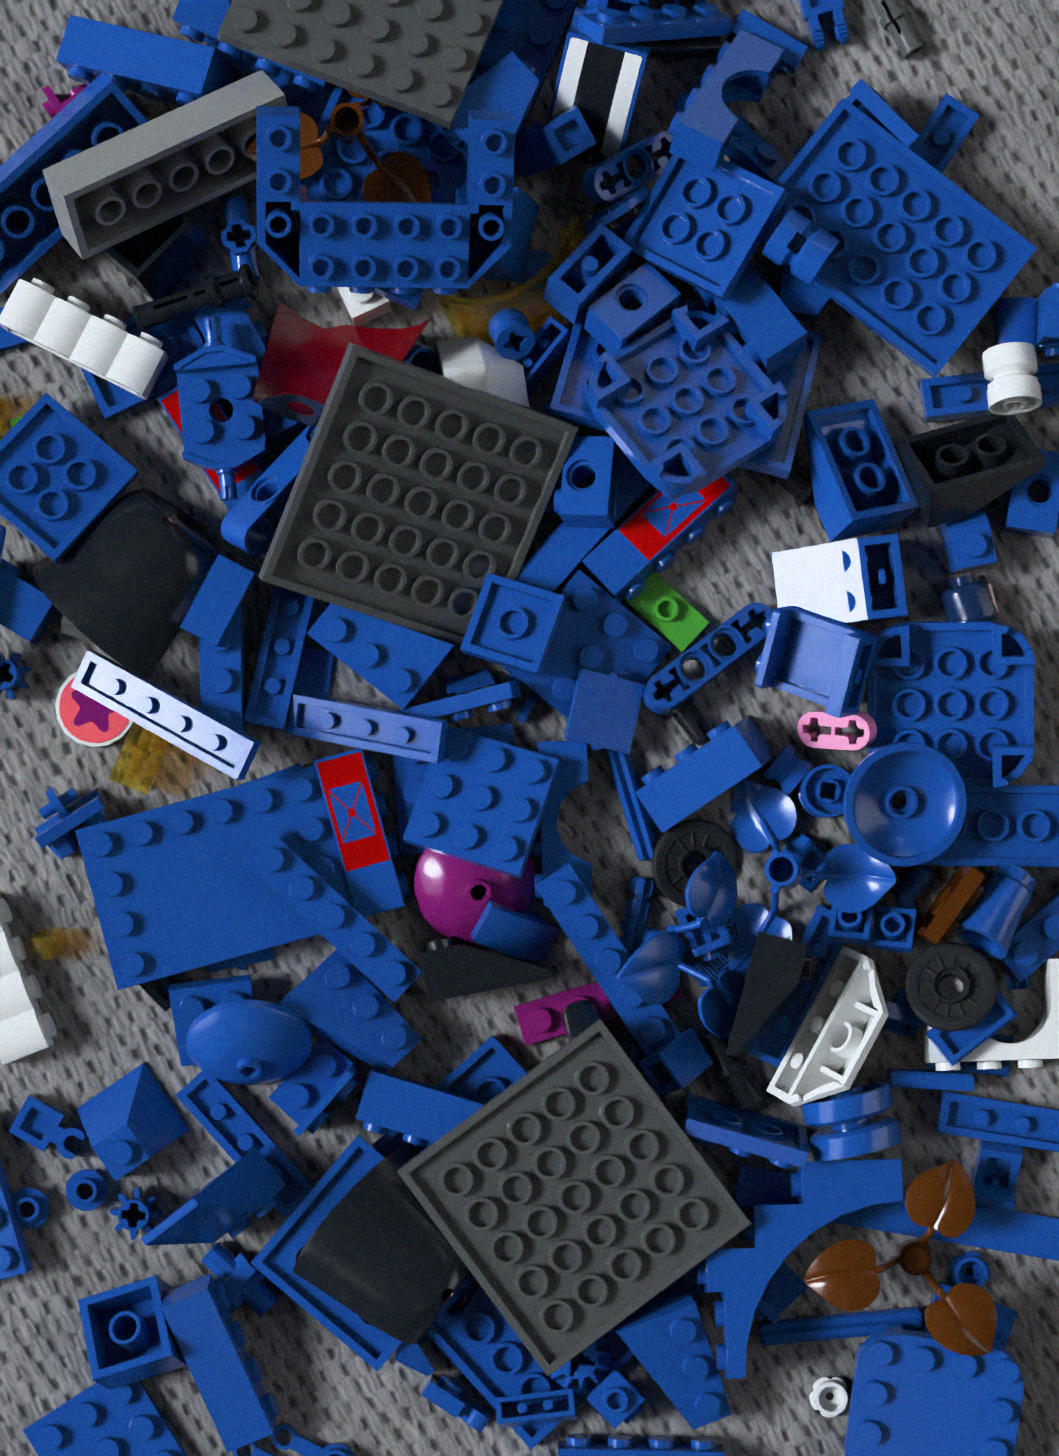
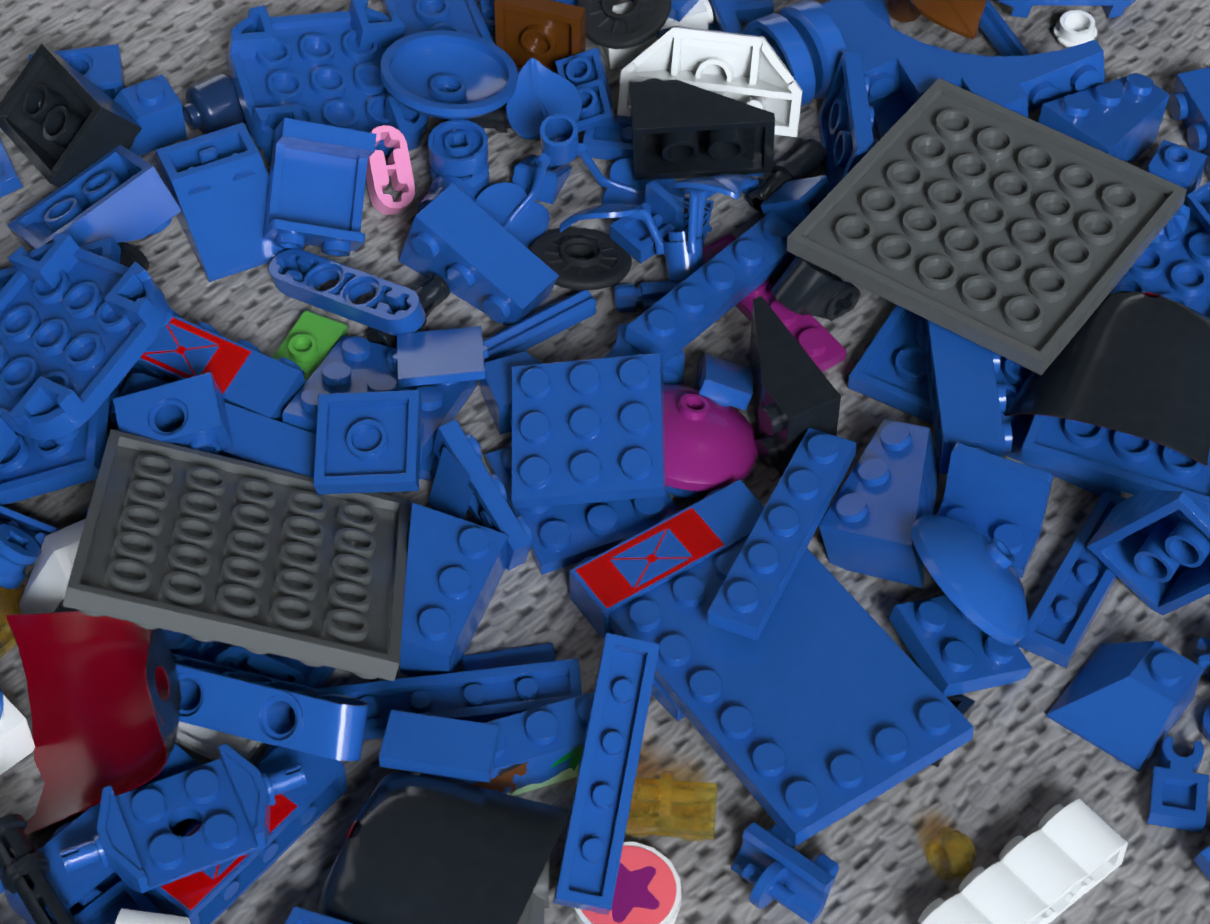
camera: 115 degrees left, 35 degrees down
(367, 727) = (542, 563): plate -> none

